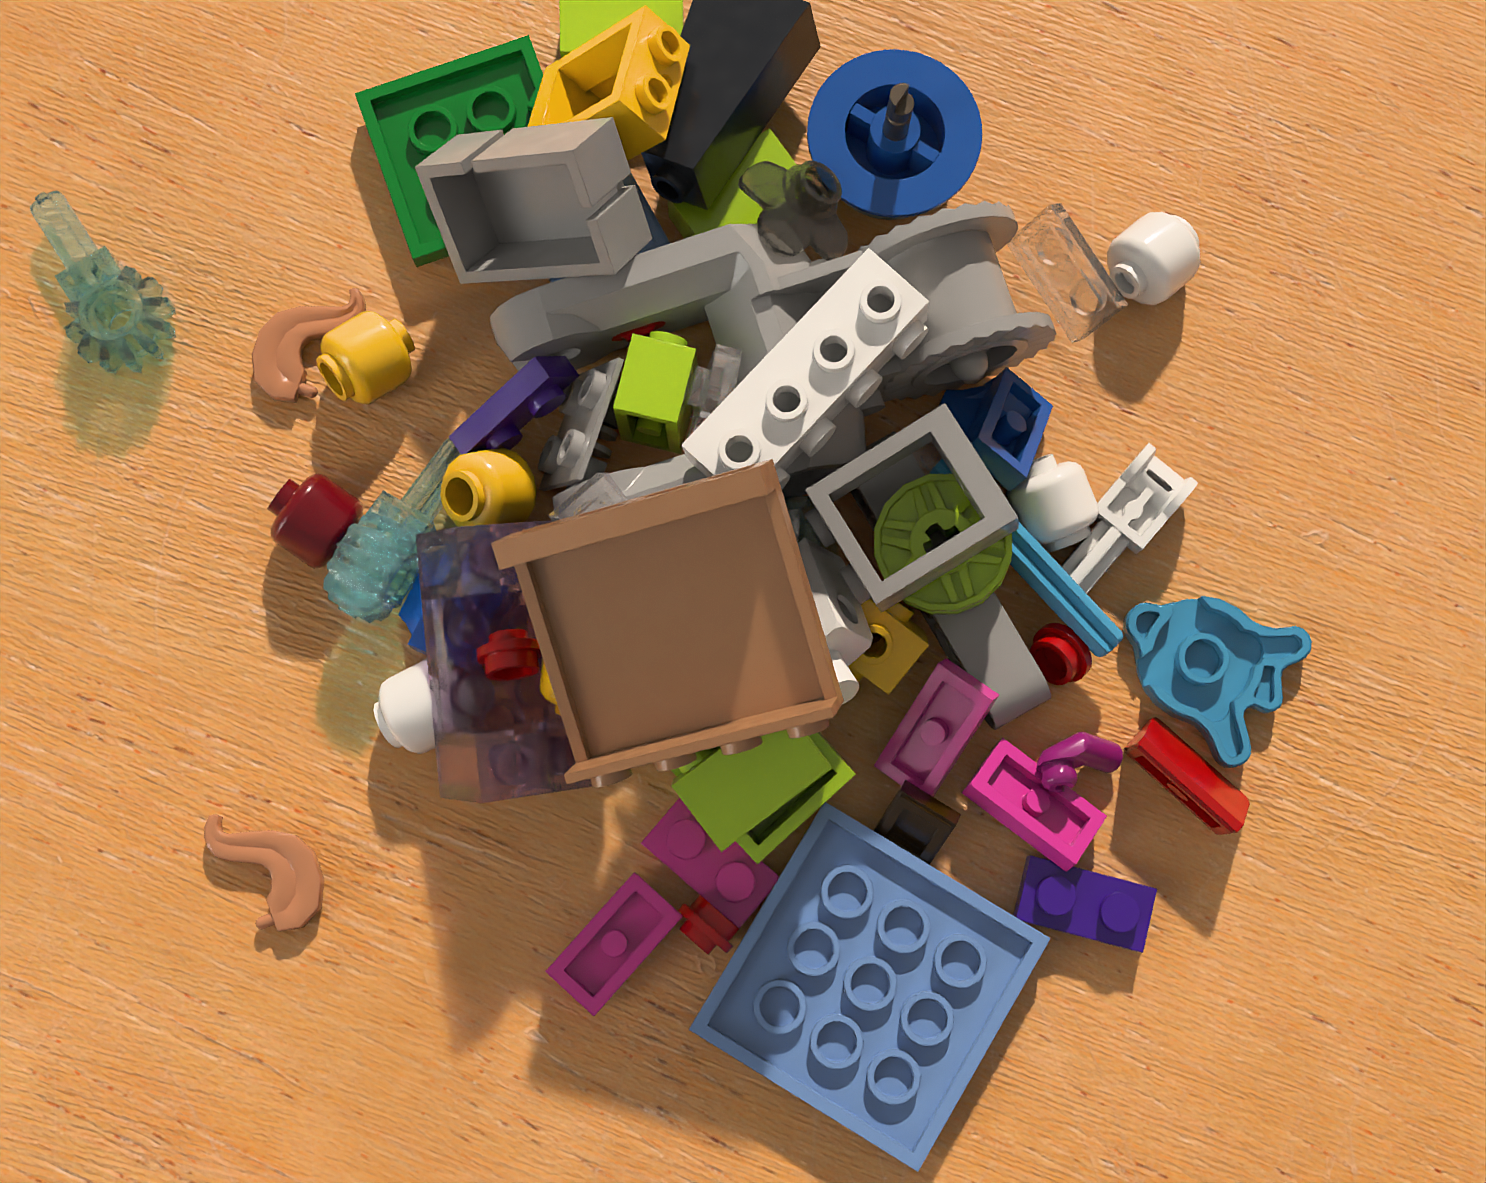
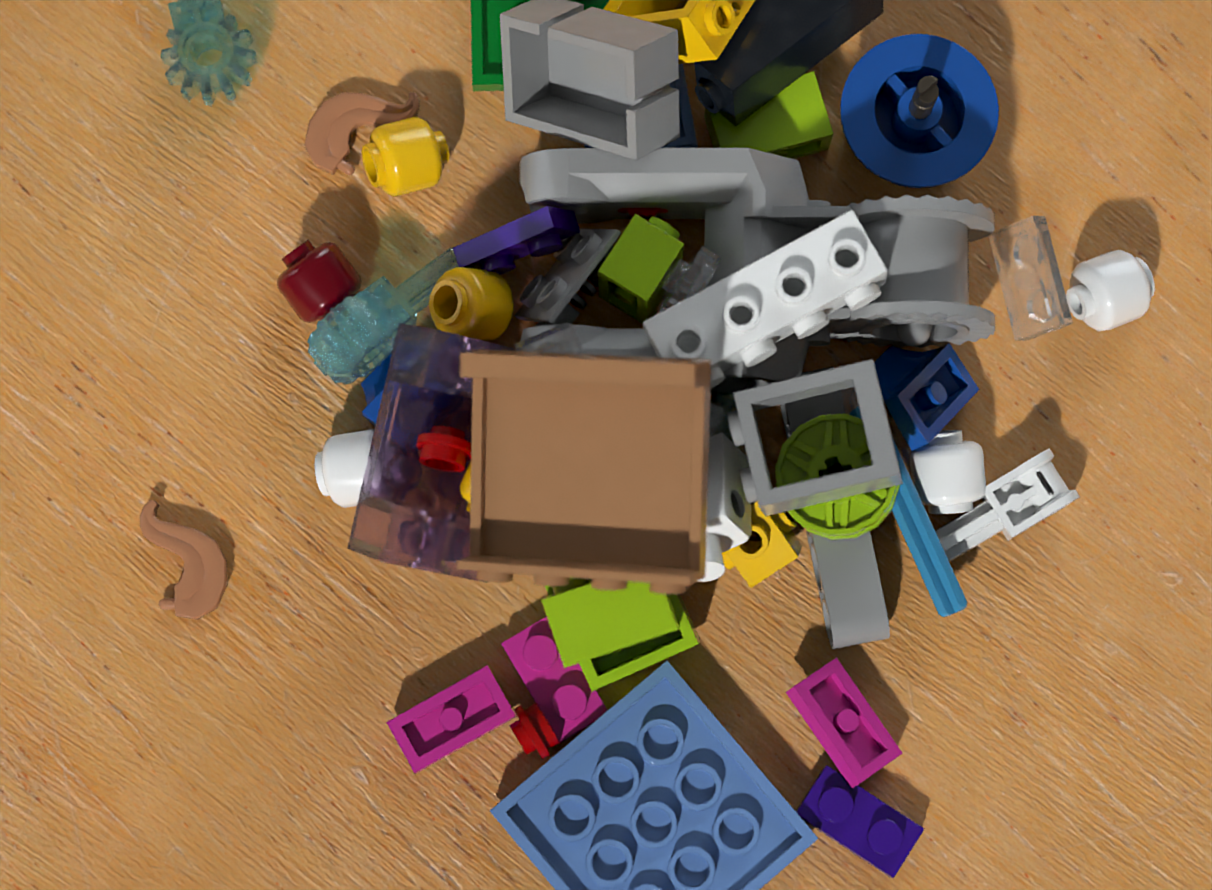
camera: 20 degrees right, 0 degrees up
(797, 208) = (811, 151): clear smoke plate -> none
(917, 822) = (739, 704): dark brown tile -> none
(936, 728) = (781, 631): dark pink plate -> none
(1060, 654) = (909, 604): red plate -> none
(1078, 750) = (894, 689): magenta arm -> none
(1188, 777) = (985, 744): red slope -> none
(1210, 665) = (1038, 656): dark azure tile -> none

